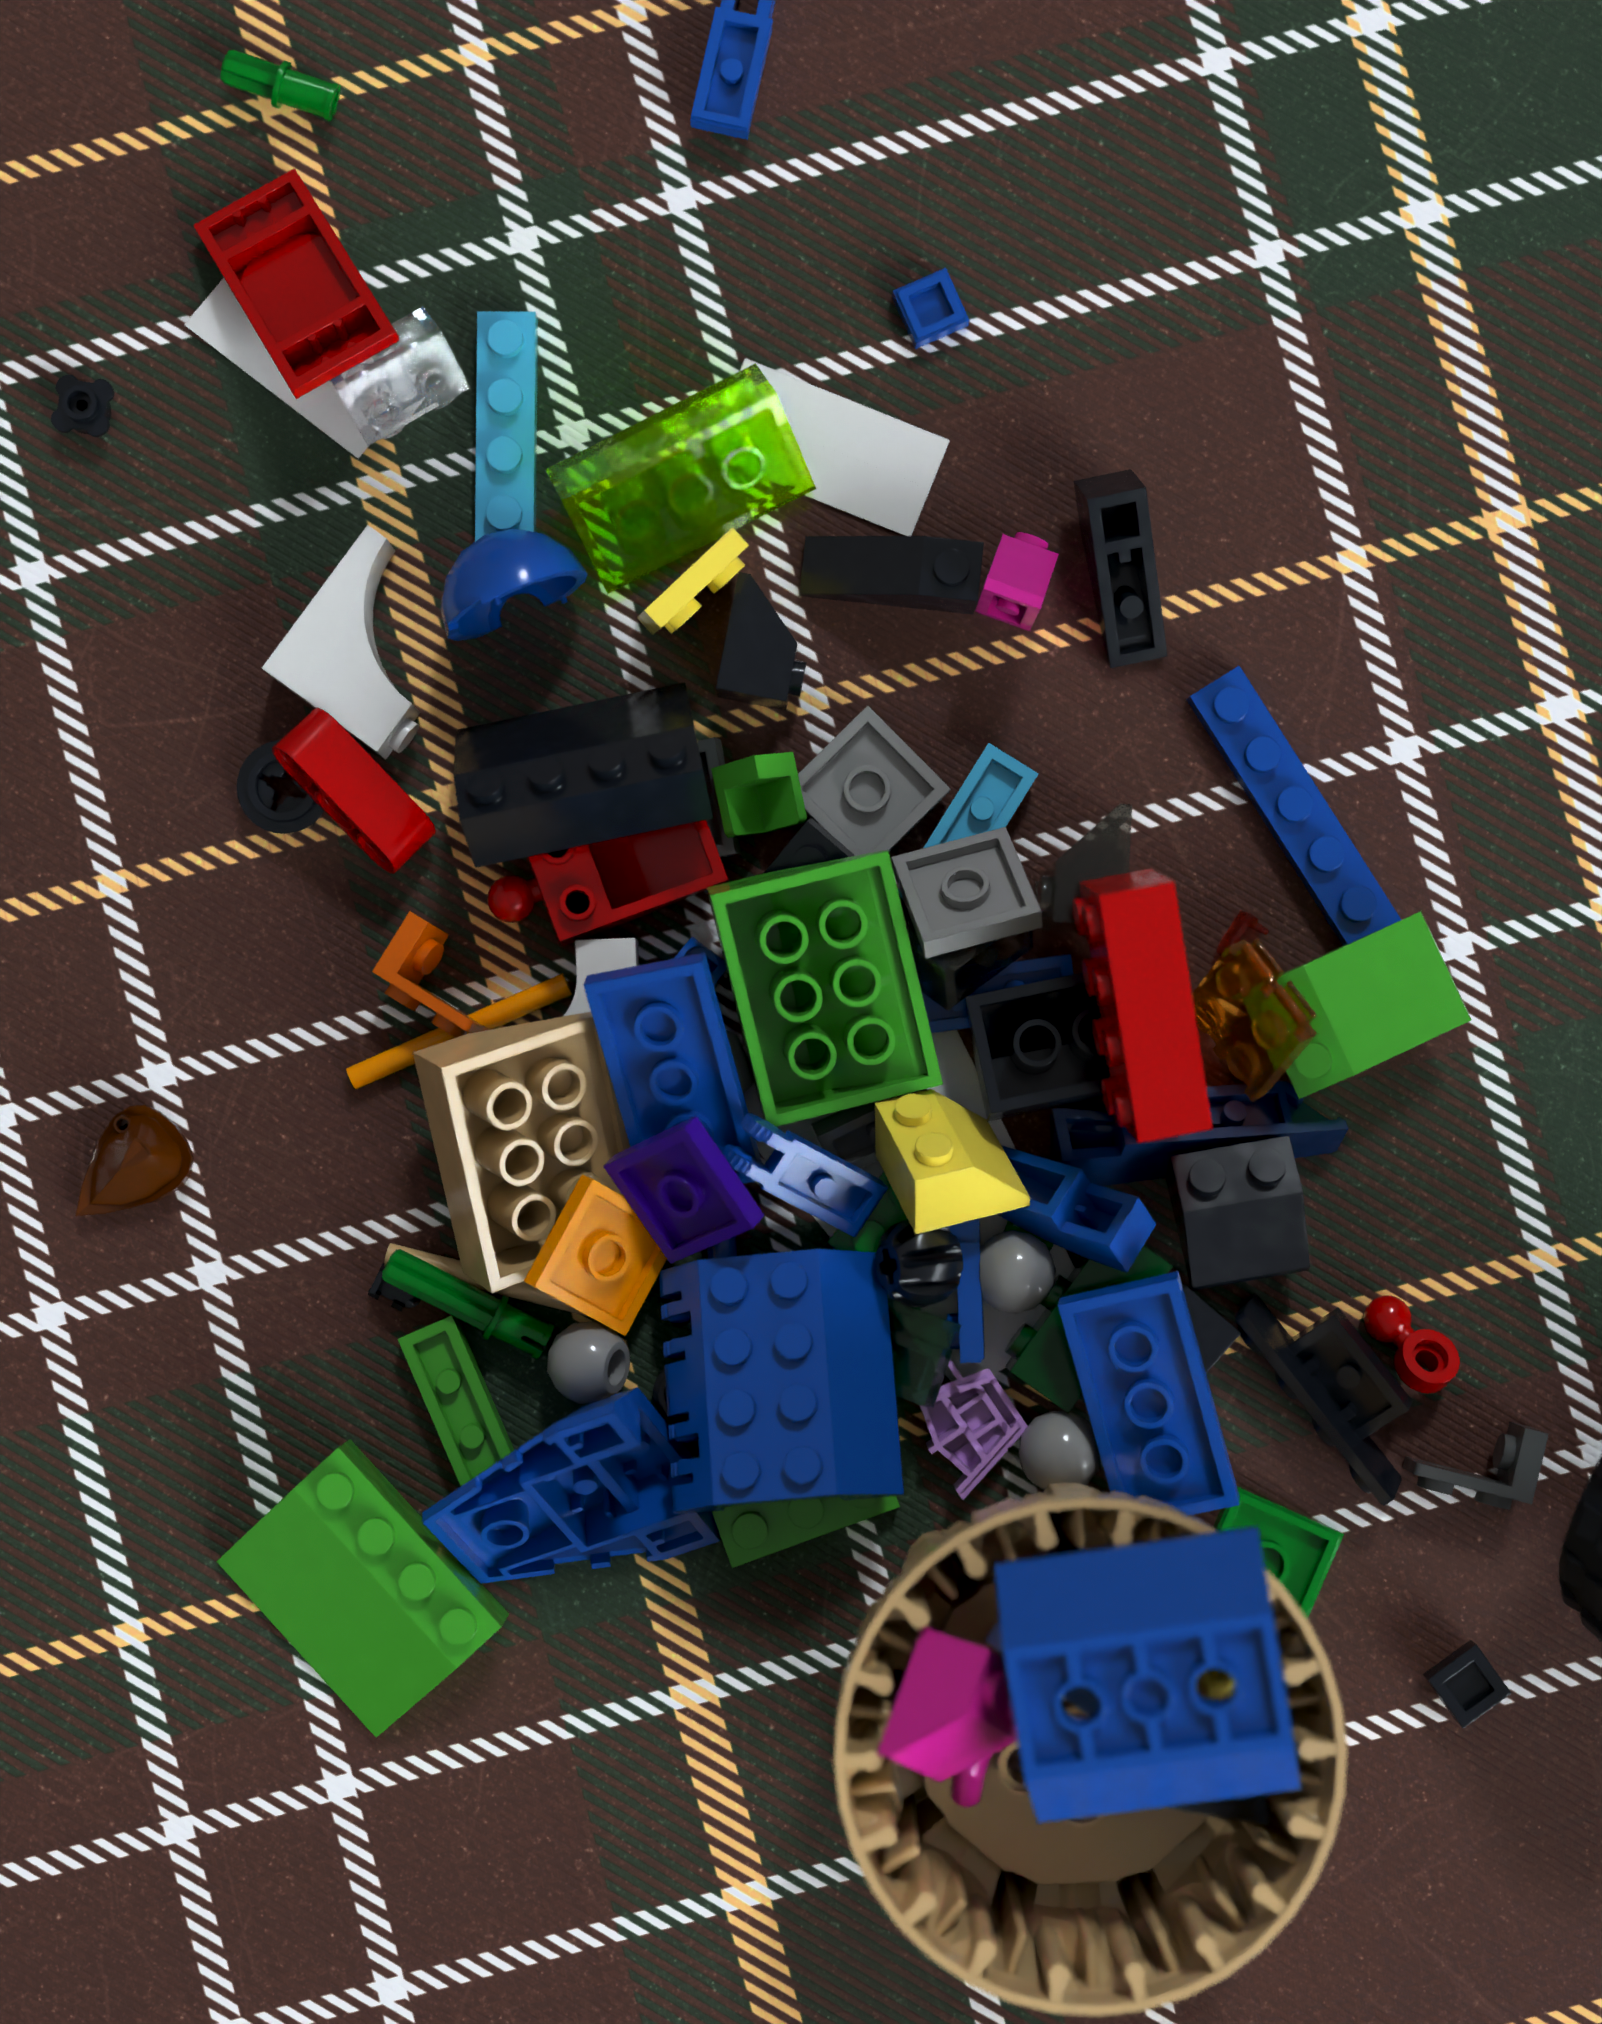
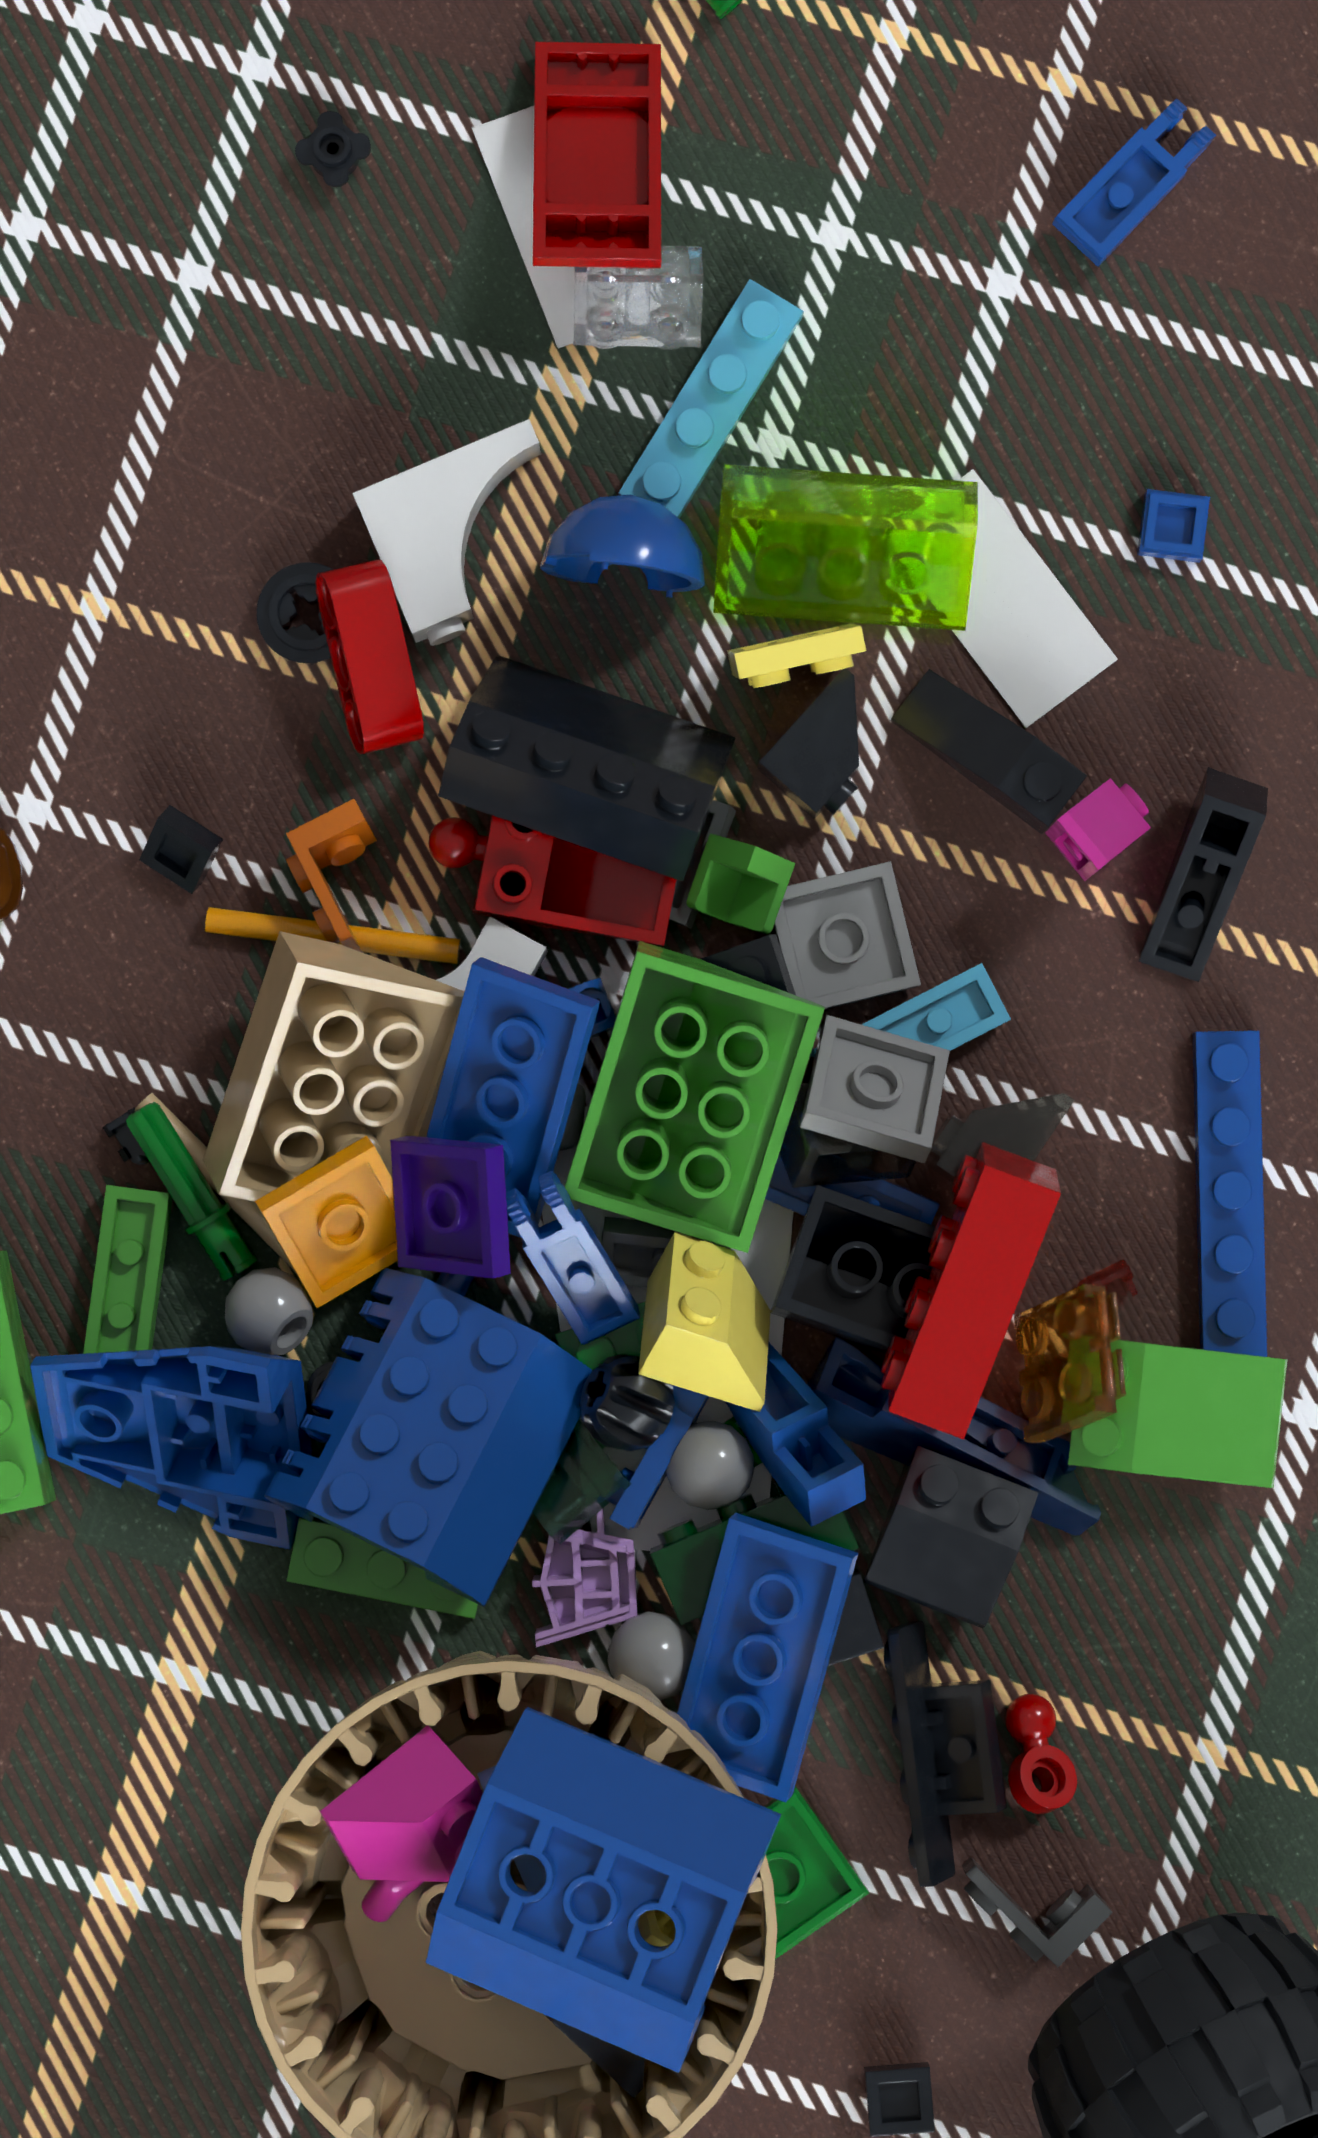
camera: 35 degrees right, 0 degrees up
(296, 1035) = (180, 849): none -> black plate

